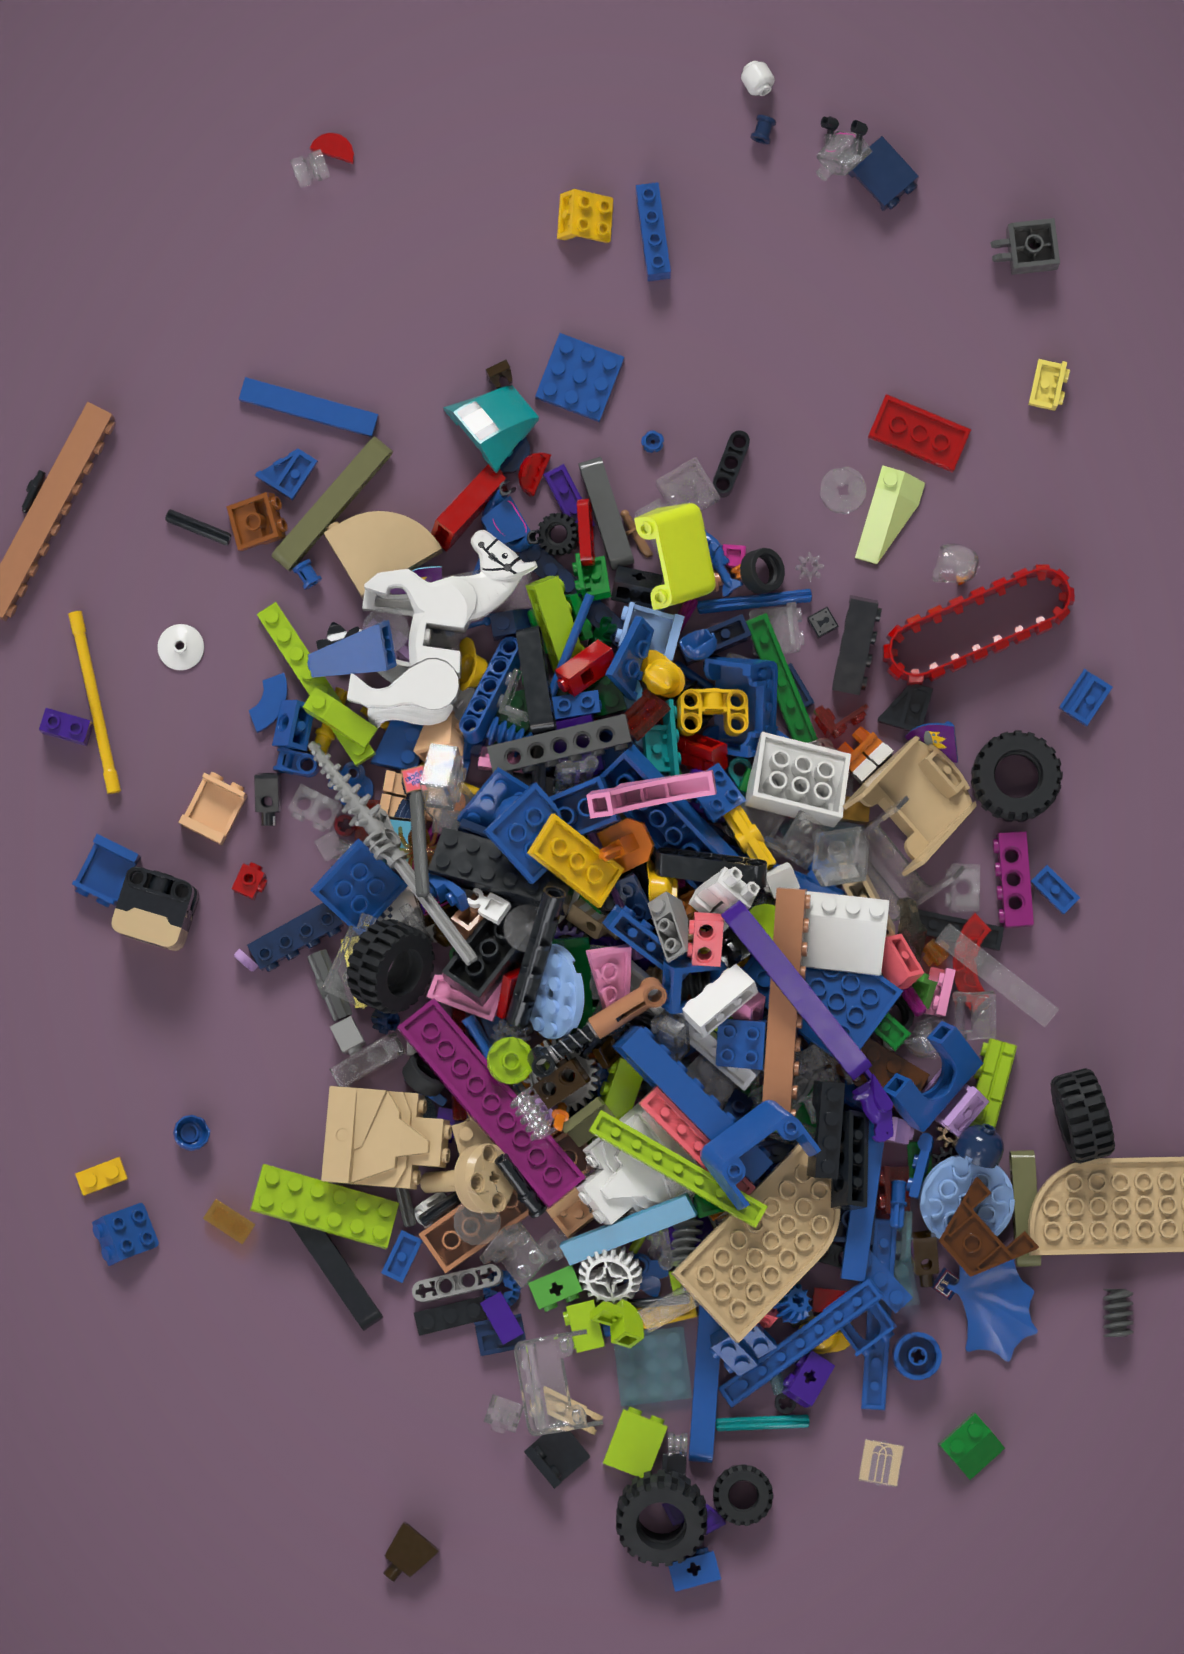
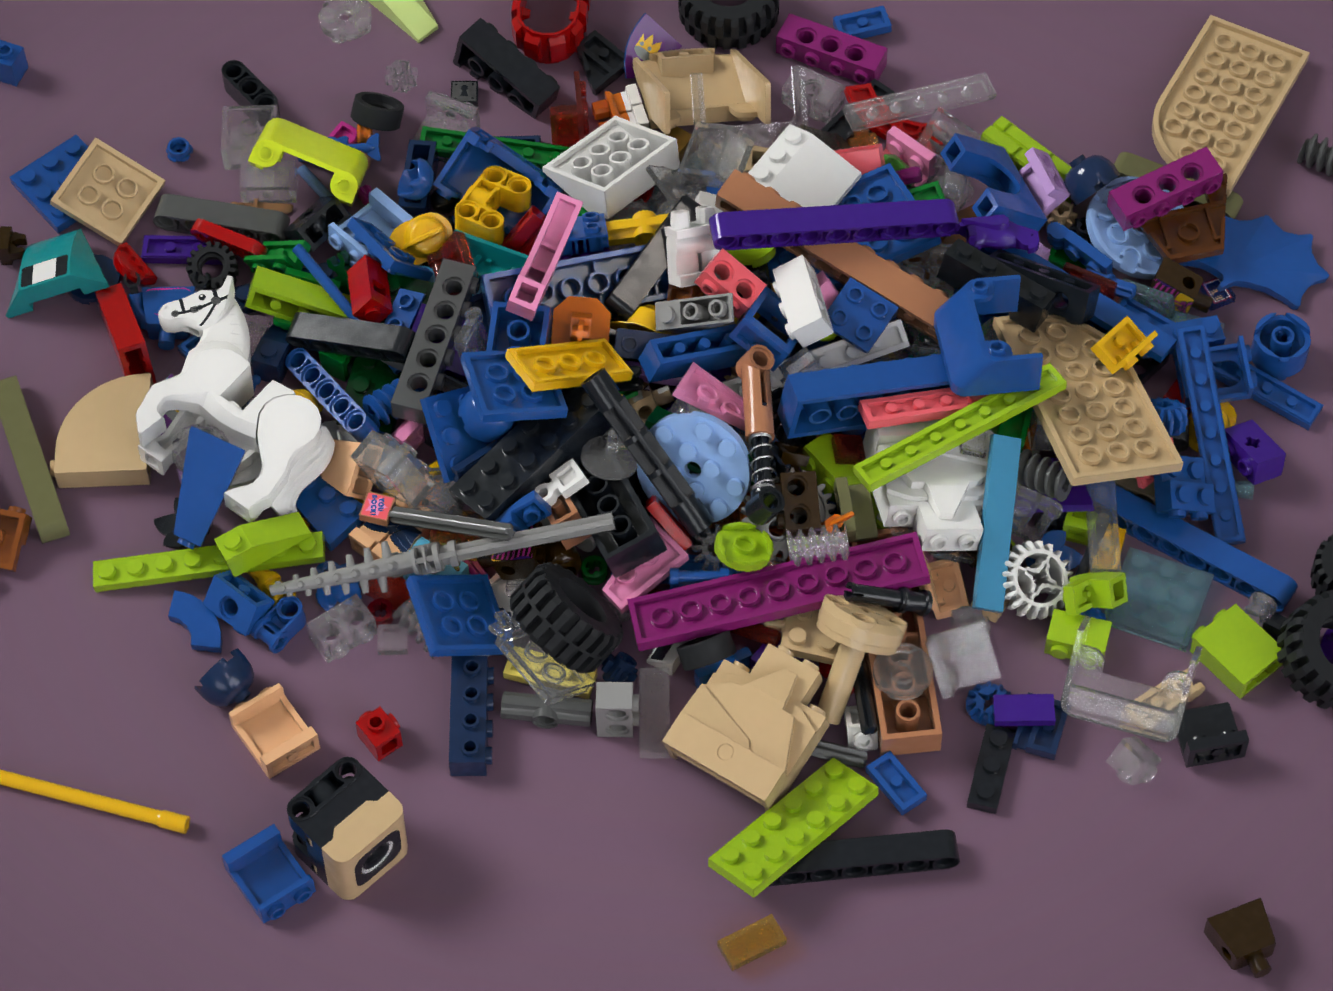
camera: 60 degrees left, 25 degrees down
(66, 726) = (80, 833): dark purple brick -> none
(184, 658) = (78, 692): white dish -> none
(191, 1132) = (626, 929): blue hair -> none
(228, 756) = (227, 681): none -> dark blue cylinder
(245, 960) = (463, 780): lavender tile -> none
(267, 785) = (296, 663): black torso -> none
(307, 574) = (76, 522): blue bush -> none
(457, 1283) = (961, 739): light grey beam -> none
(515, 715) = (371, 381): clear bracket -> none
(541, 1288) = (1022, 631): bright green brick -> none
(579, 417) = (107, 192): none -> tan plate
(637, 1089) = (848, 449): none -> clear red tile
(754, 601) = (400, 142): blue axle -> none
(762, 1422) = (1279, 519): teal axle -> none
(787, 1409) = (1266, 501): black bush -> none
(825, 1248) = (1122, 344): none -> yellow bracket
(1027, 1226) = (1172, 177): none -> magenta brick
(1082, 1115) = (1112, 57): black tyre -> none

